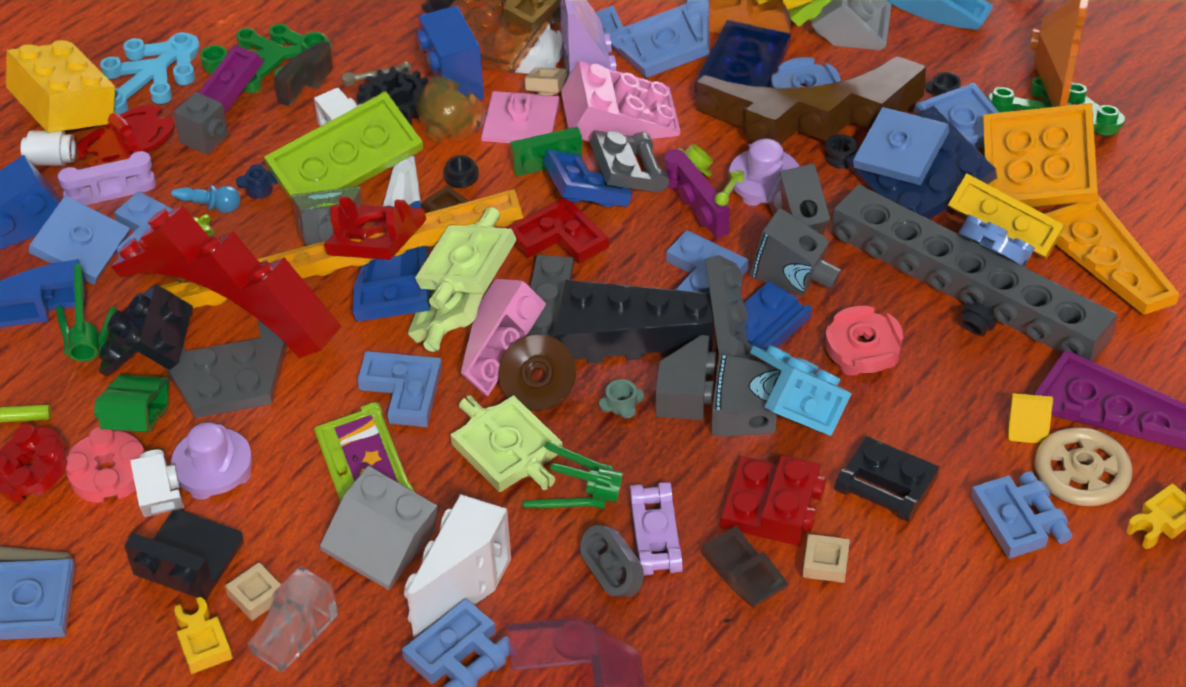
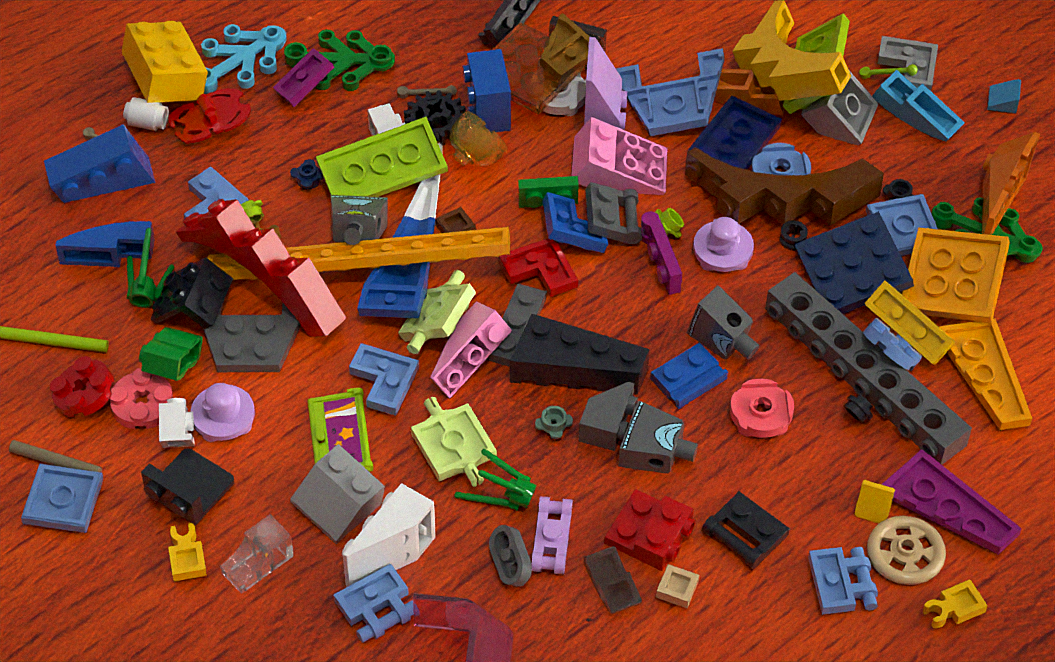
camera: 10 degrees right, 5 degrees up
(79, 234) = (156, 199): medium blue plate -> none
(108, 180) = (188, 152): lavender plate -> none
(201, 123) = (272, 114): dark grey brick -> none
(223, 199) = (277, 185): dark azure bar -> none
(253, 591) = (232, 525): tan plate -> none
(305, 69) = (369, 78): clear smoke slope -> none
(396, 222) = (408, 241): red piece -> none
(461, 172) = (474, 197): black plate -> none
(466, 258) = (454, 282): yellowish green plate -> none
(519, 116) = (536, 154): bright pink piece -> none
(535, 354) = (481, 376): reddish brown dish -> none
(546, 80) = (564, 125): tan plate -> none
(690, 255) = (656, 319): medium blue plate -> none
(722, 198) = (698, 244): lime hinge -> none
(728, 308) = (656, 364): dark grey plate -> none
(802, 196) = (740, 275): dark grey torso -> none
(802, 393) = (696, 444): medium azure bracket -> none
(901, 146) = (840, 244): medium blue plate -> none

